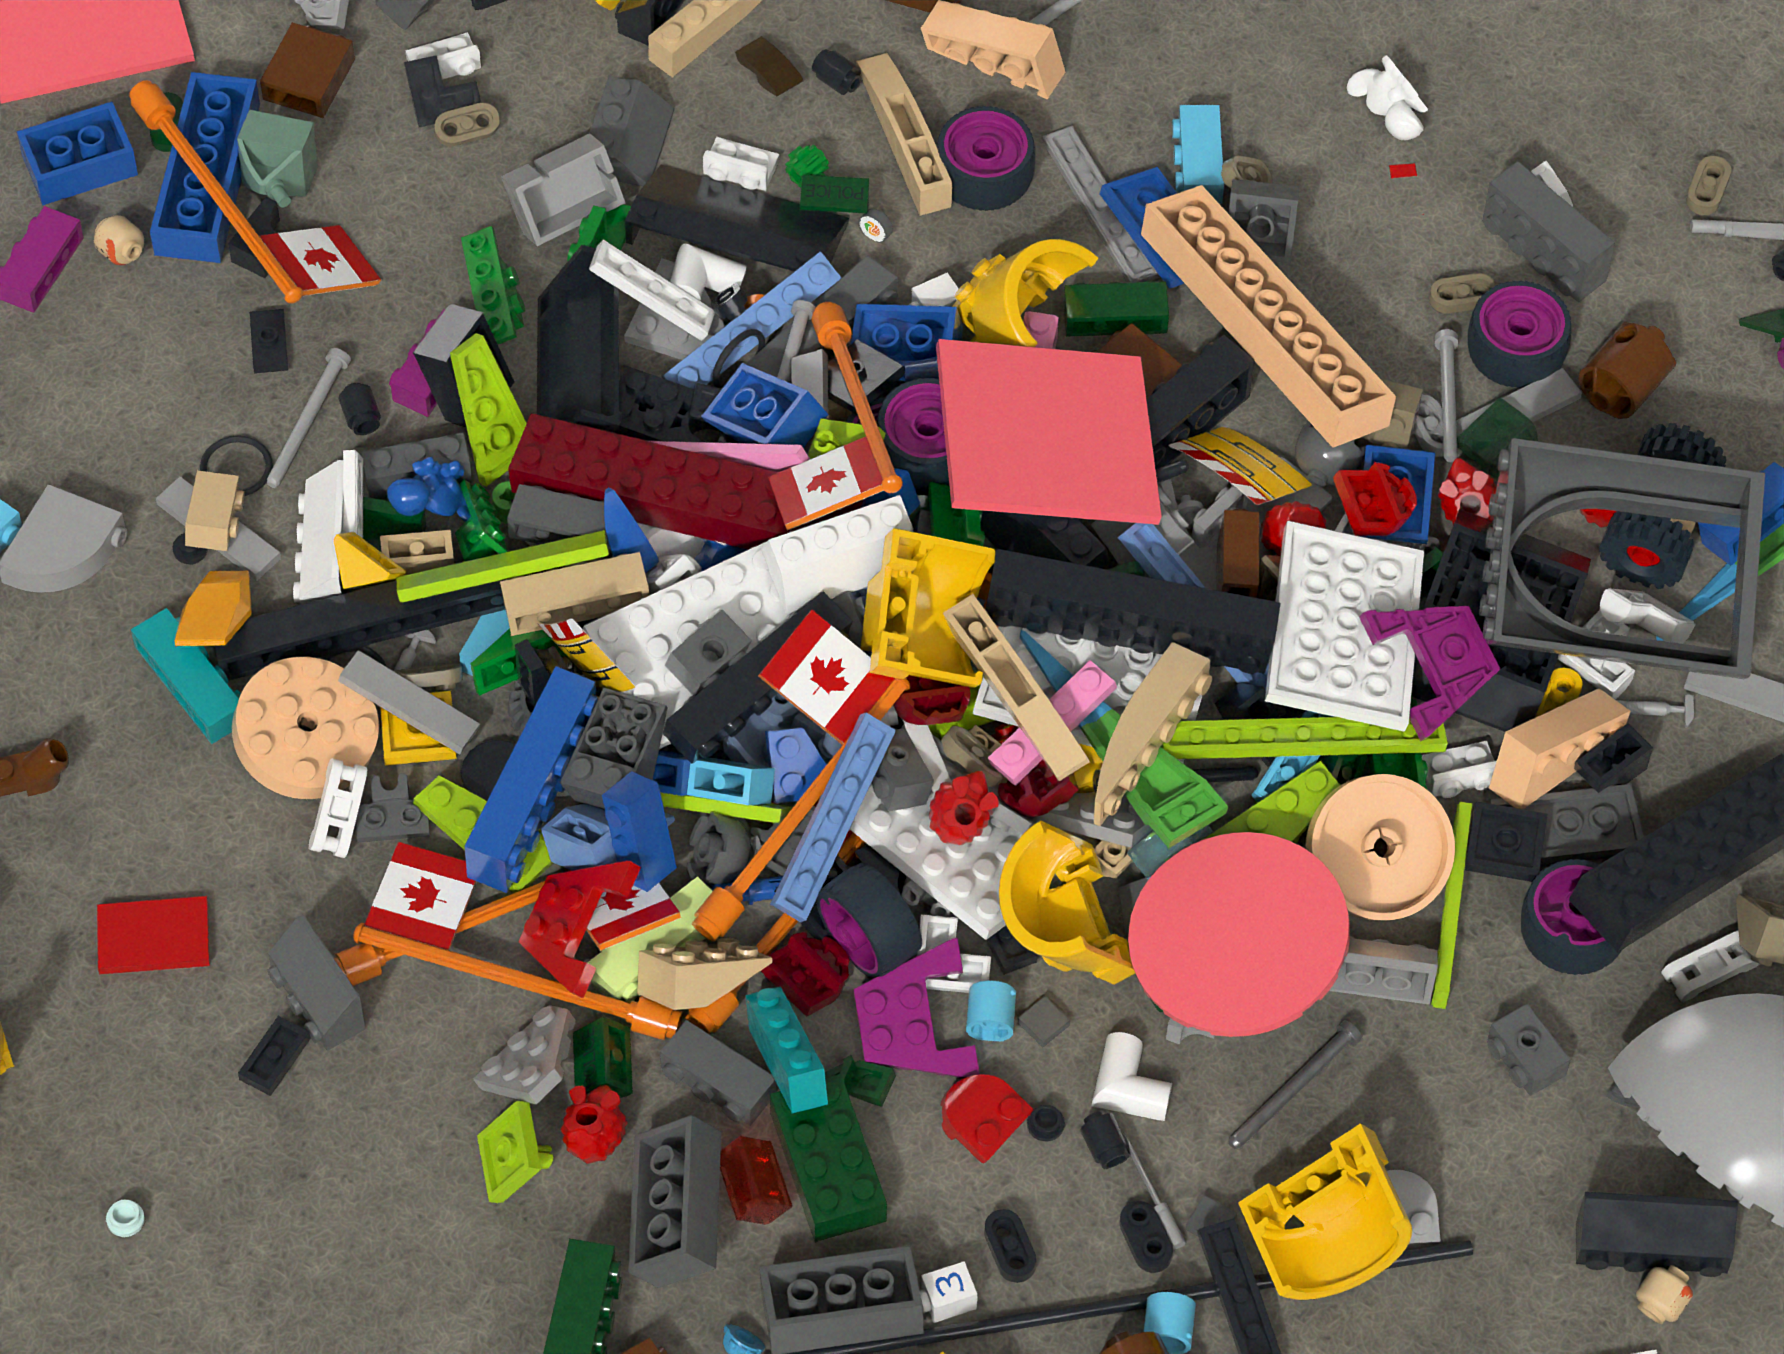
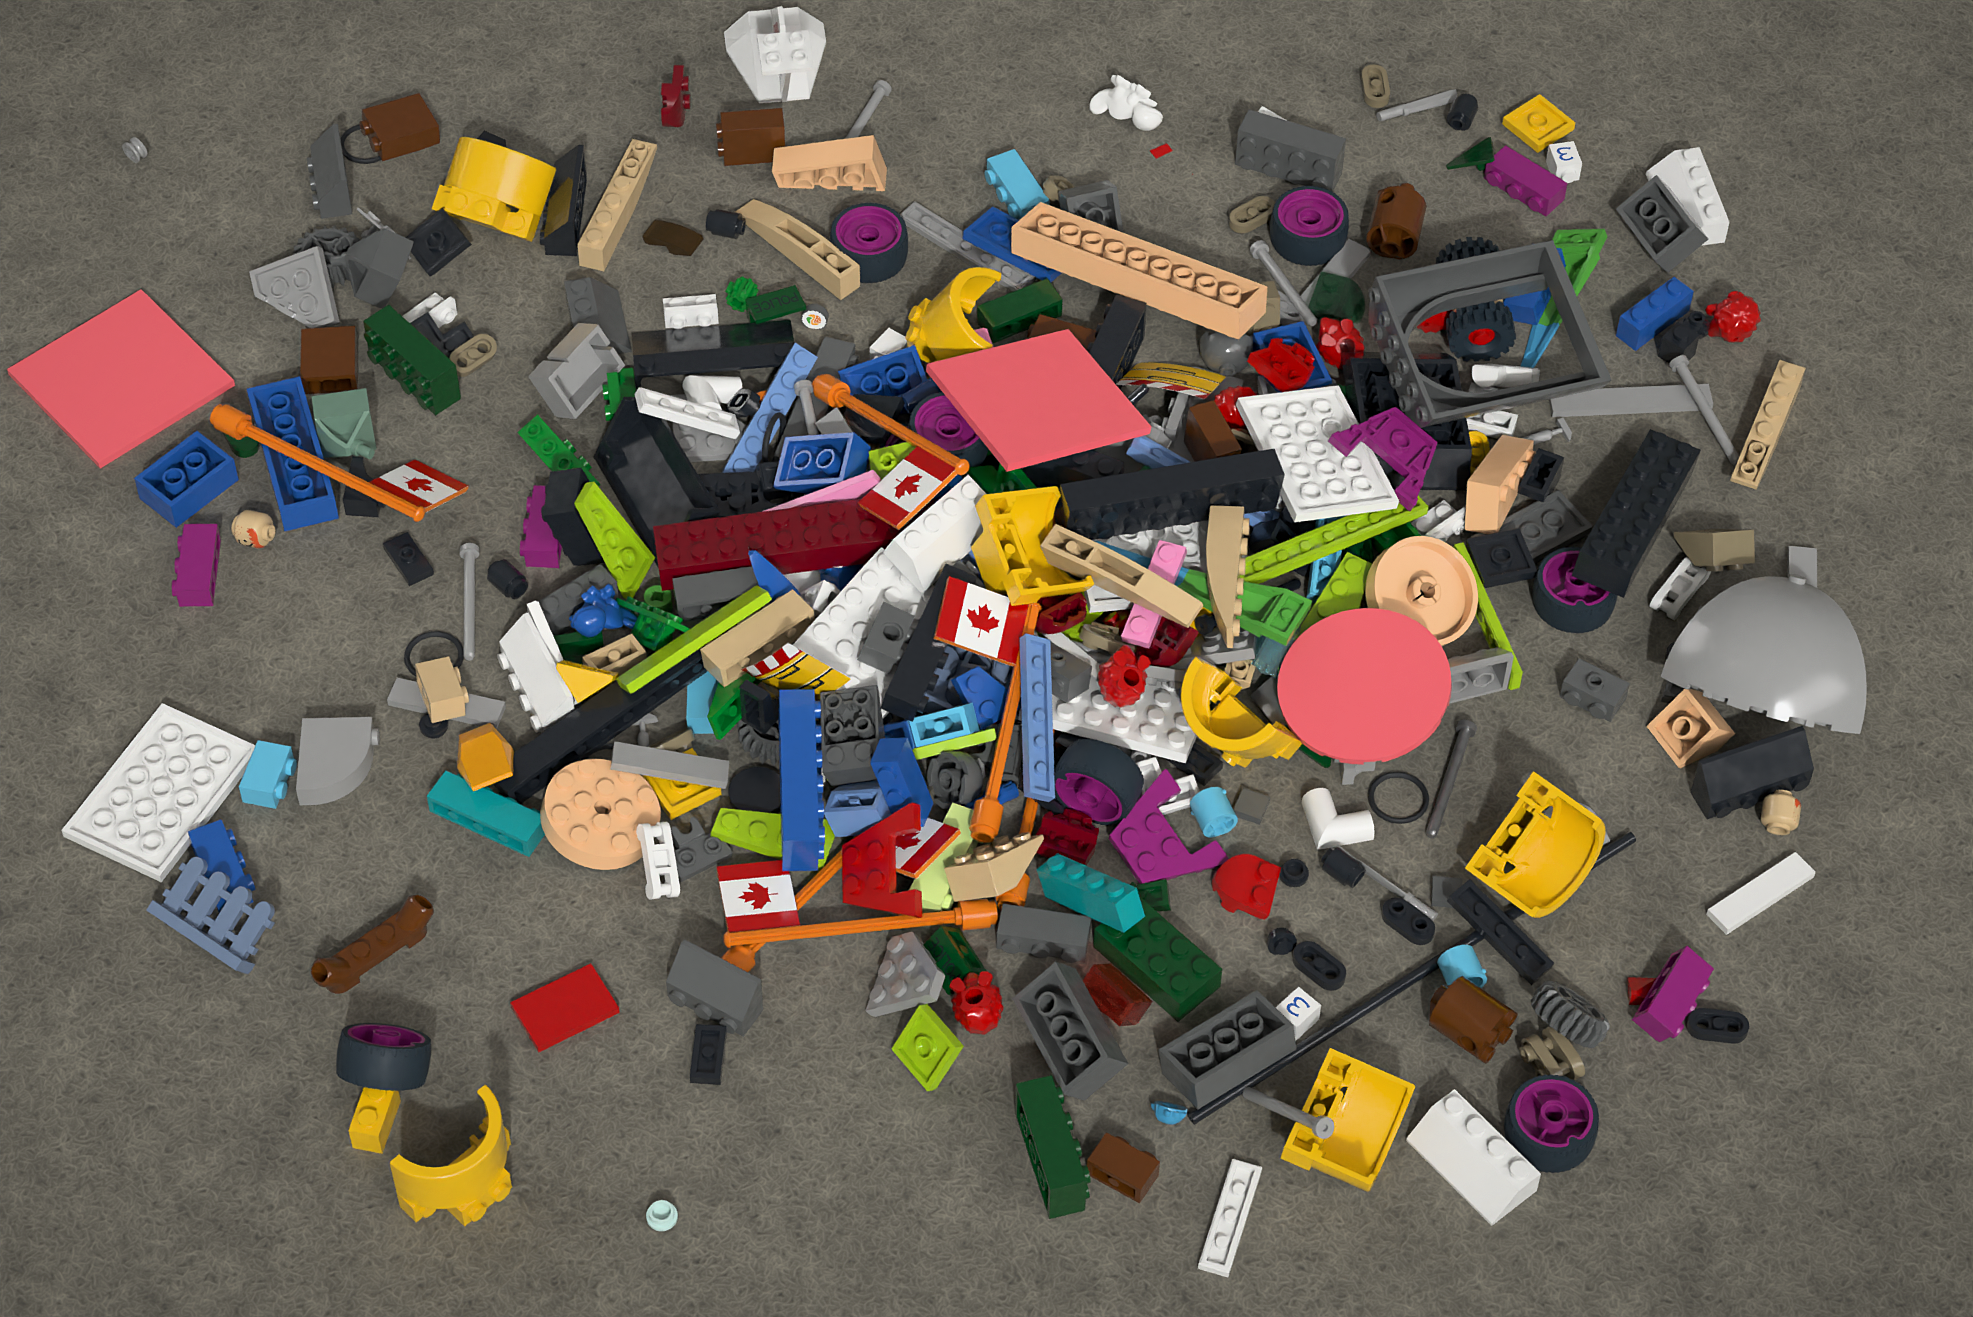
camera: 25 degrees left, 5 degrees down
(390, 106) = (411, 360): none -> dark green brick
(982, 1198) = (1281, 941): none -> black plate
(1222, 1114) = (1379, 813): none -> black tyre
(1616, 1146) = (1690, 728): none -> light nougat slope

